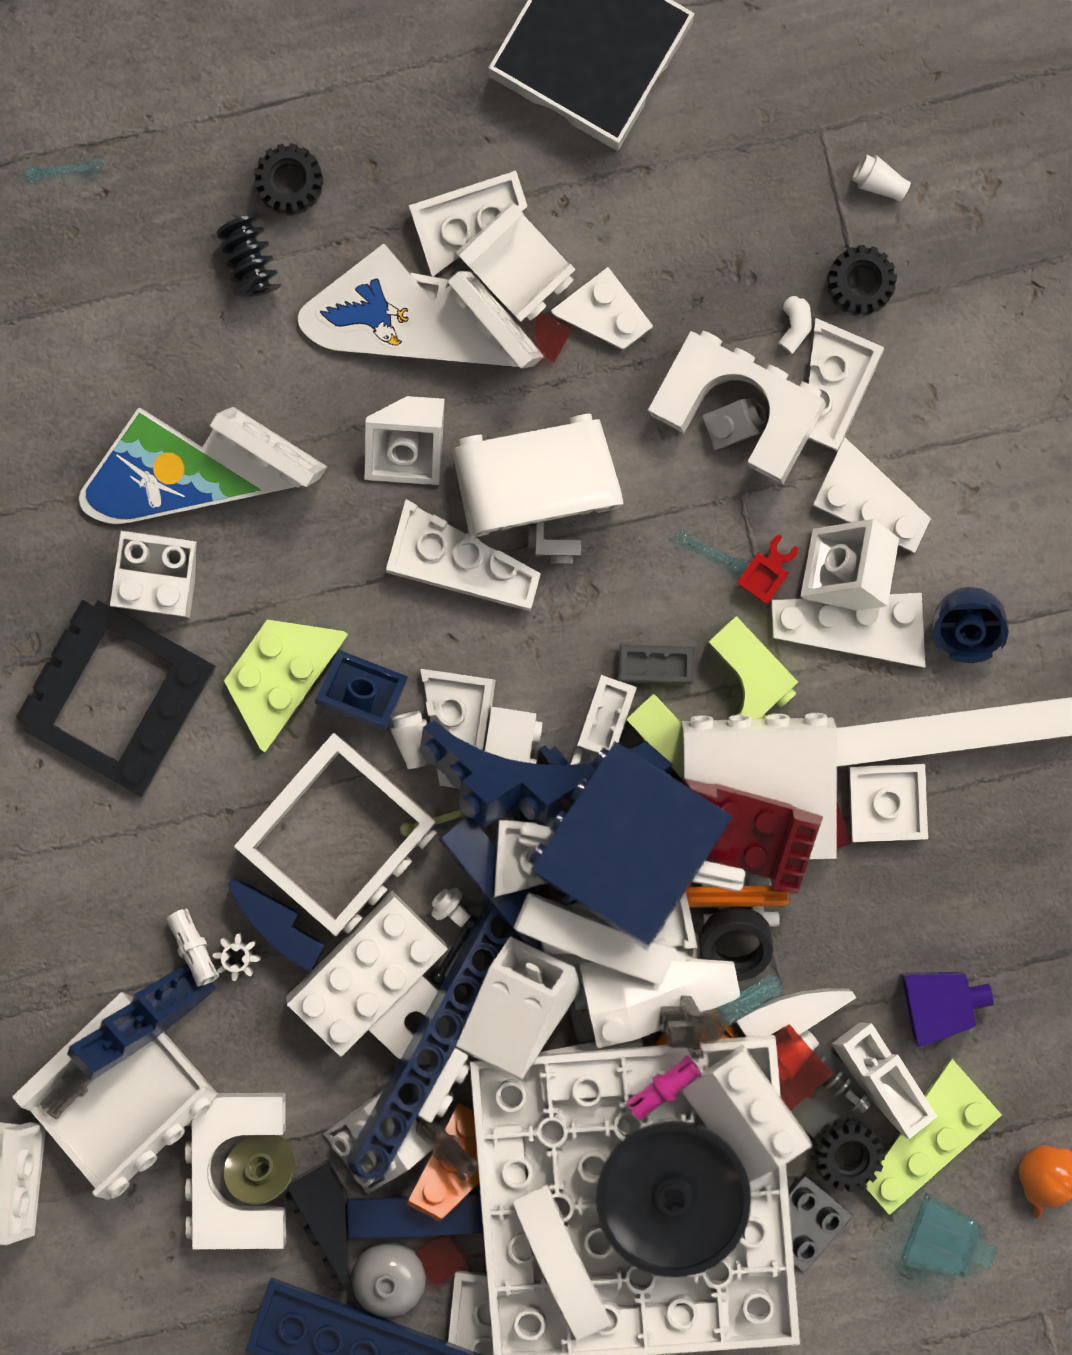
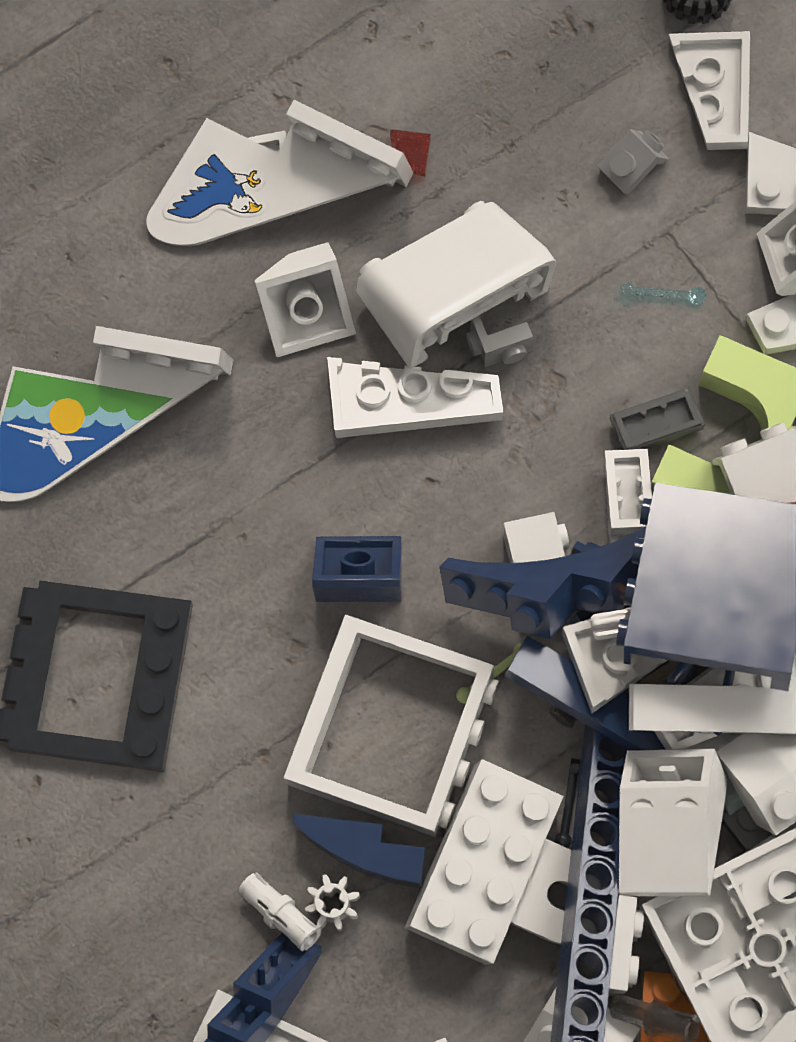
camera: 15 degrees left, 15 degrees down
(154, 574) = (91, 529): white slope -> none
(246, 256) = (73, 184): black piece -> none
(279, 673) = (263, 584): yellowish green wing -> none
(288, 156) = (82, 80): black tyre -> none
(407, 734) = (426, 592): white cone -> none
(447, 904) = (542, 756): white plate -> none
(458, 216) = (279, 70): white wing -> none
(460, 706) = (470, 535): white wing -> none
(517, 263) = (349, 86): white panel -> none
(605, 311) = (457, 107): white wing -> none
(707, 364) = (583, 111): white arch -> none
(764, 574) = (729, 290): red plate -> none
(800, 322) = (652, 38): white arm -> none

